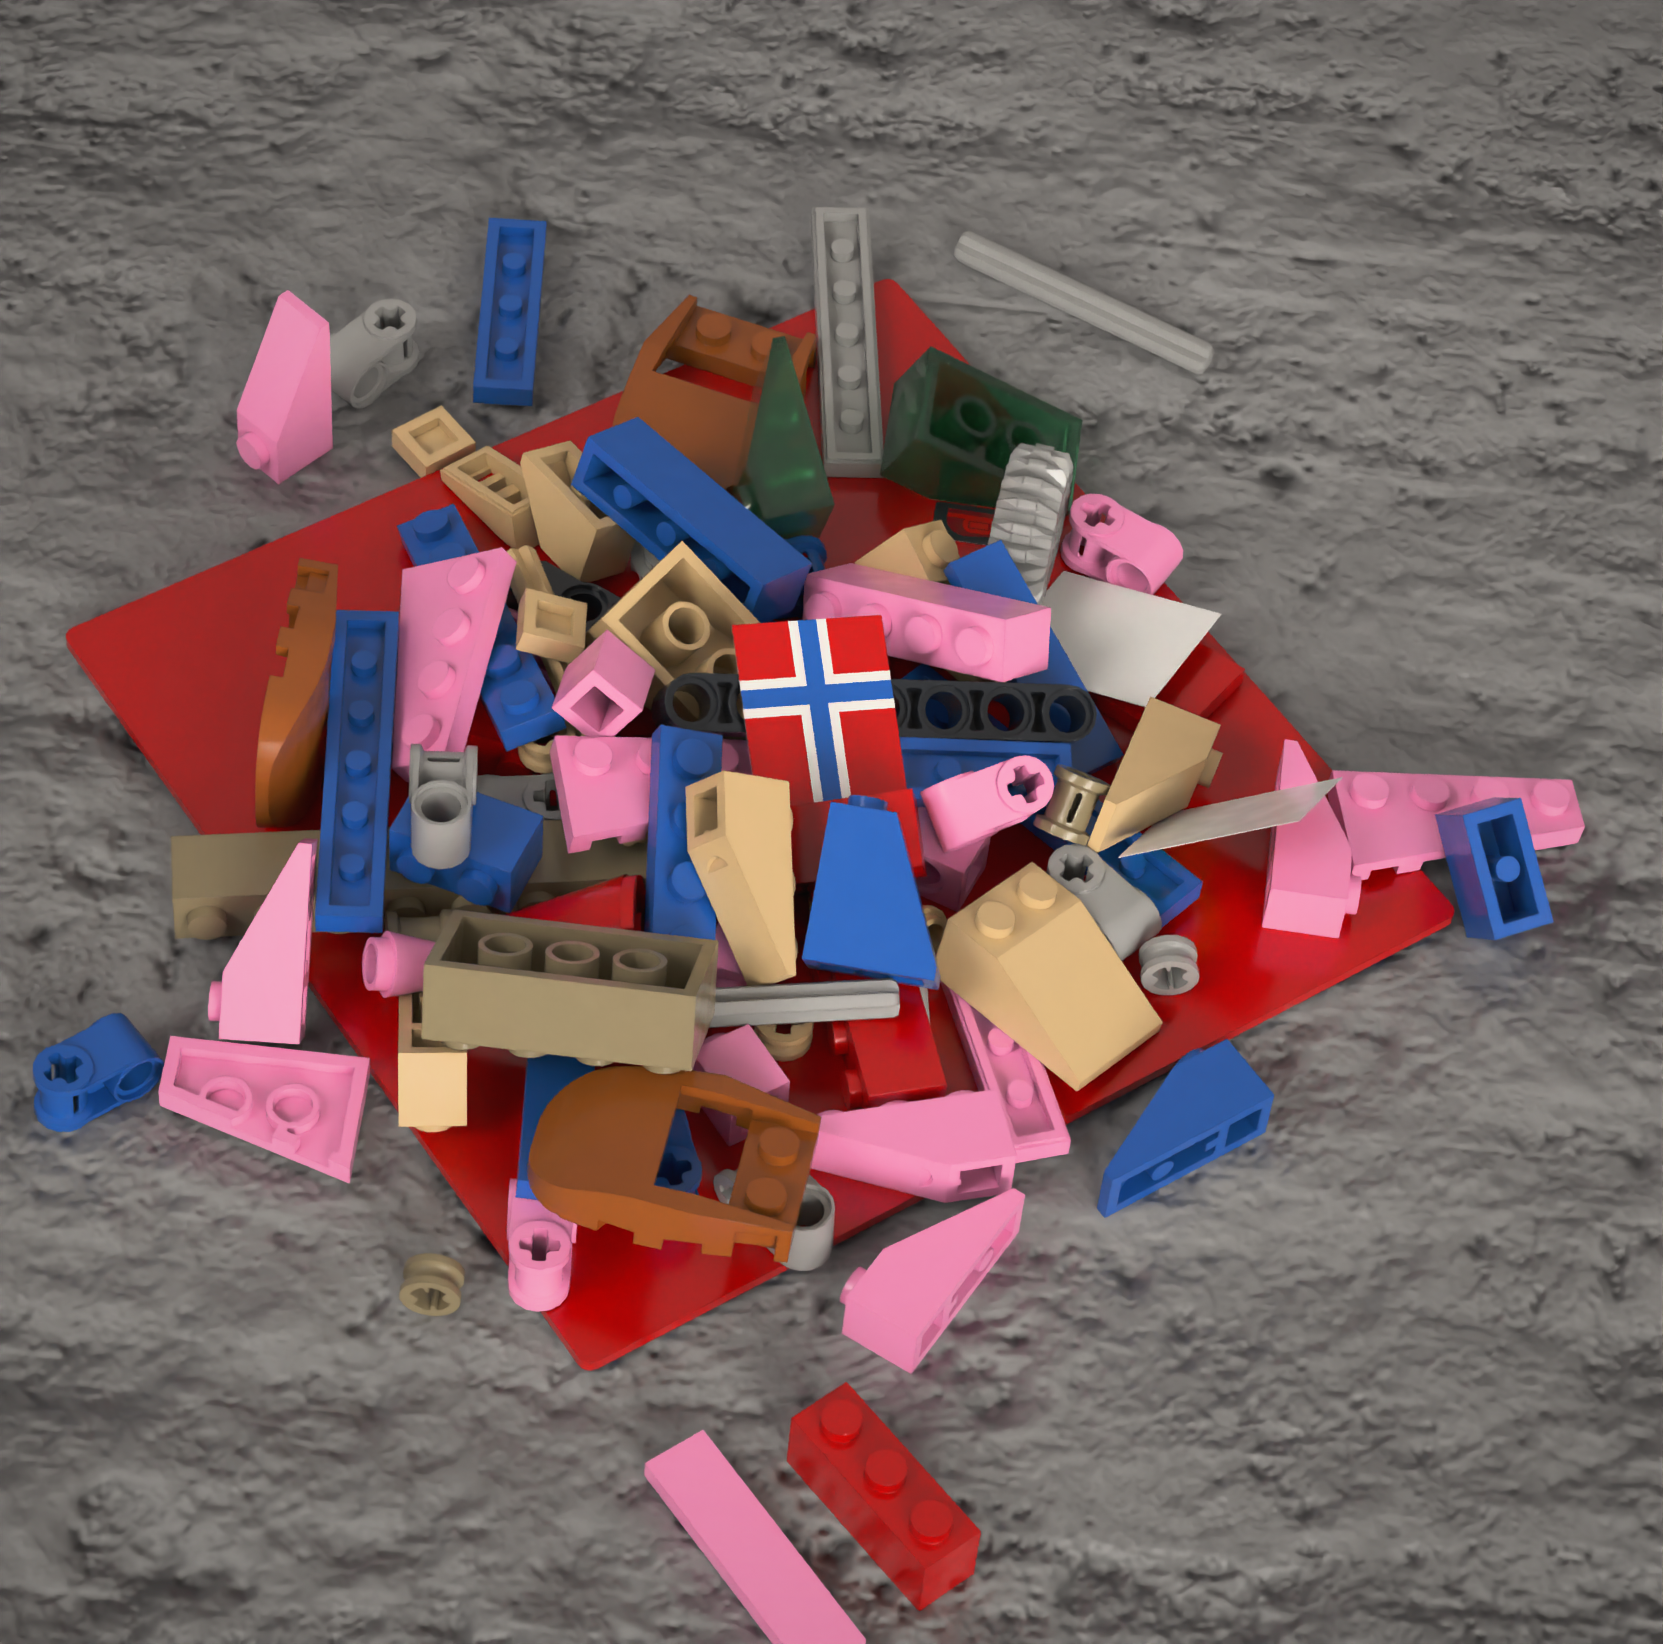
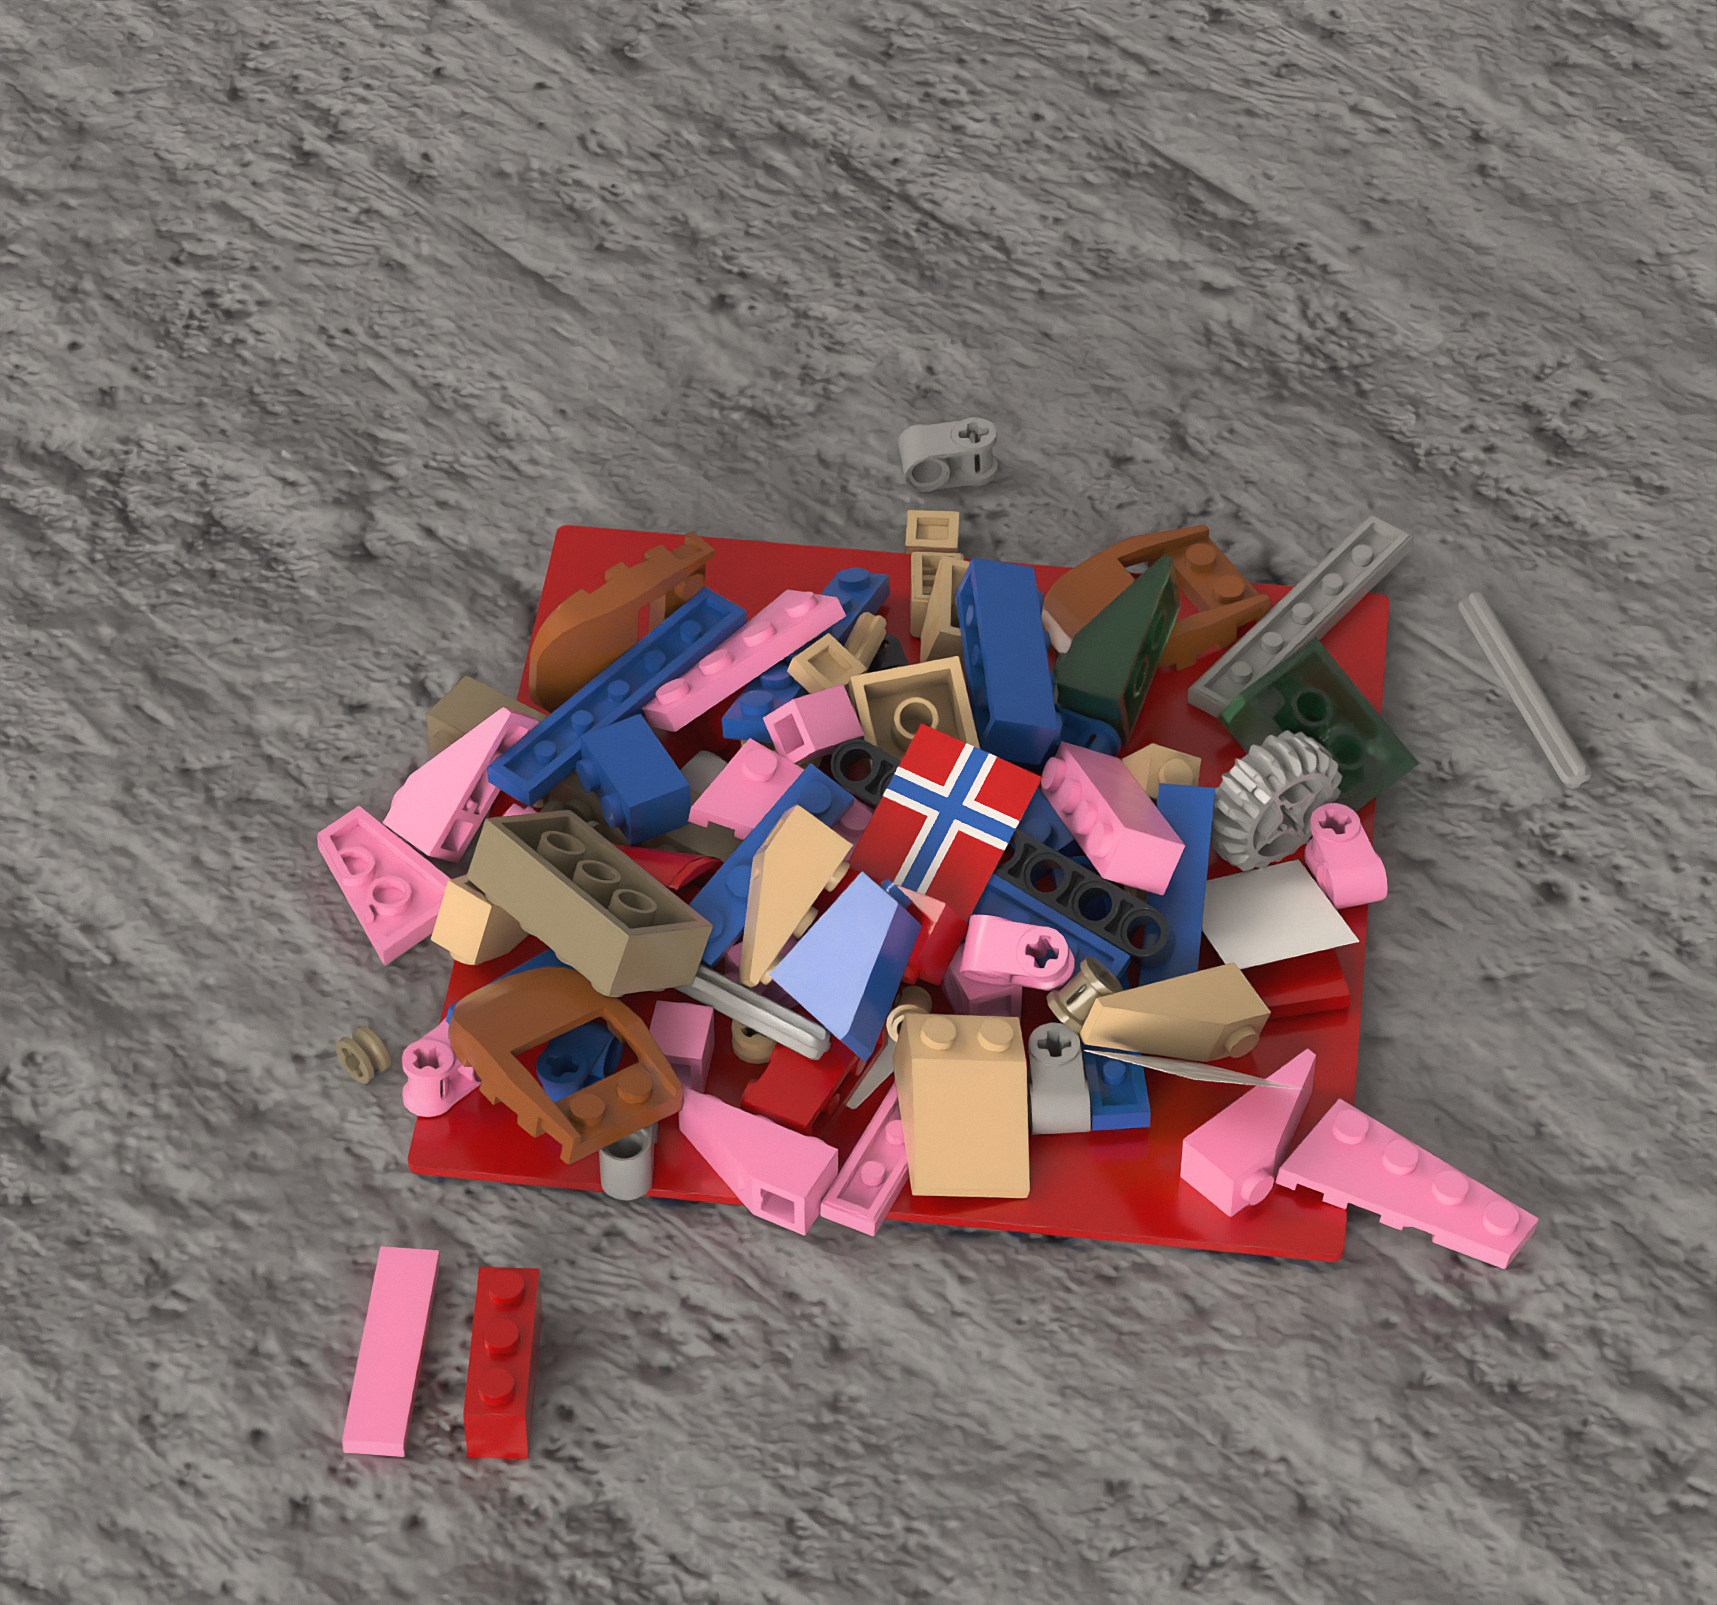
camera: 45 degrees right, 5 degrees down
(98, 1066) = (296, 802): blue piece -> none
(287, 398) = (839, 447): bright pink slope -> none
(442, 804) = (620, 733): light grey piece -> none
(510, 312) = (1080, 477): blue plate -> none
(926, 1279) = (686, 1252): bright pink slope -> none
(1168, 965) = (1068, 1153): light grey bush -> none
(1197, 1115) = (972, 1266): blue slope -> none
(1494, 868) = (1380, 1230): blue brick -> none

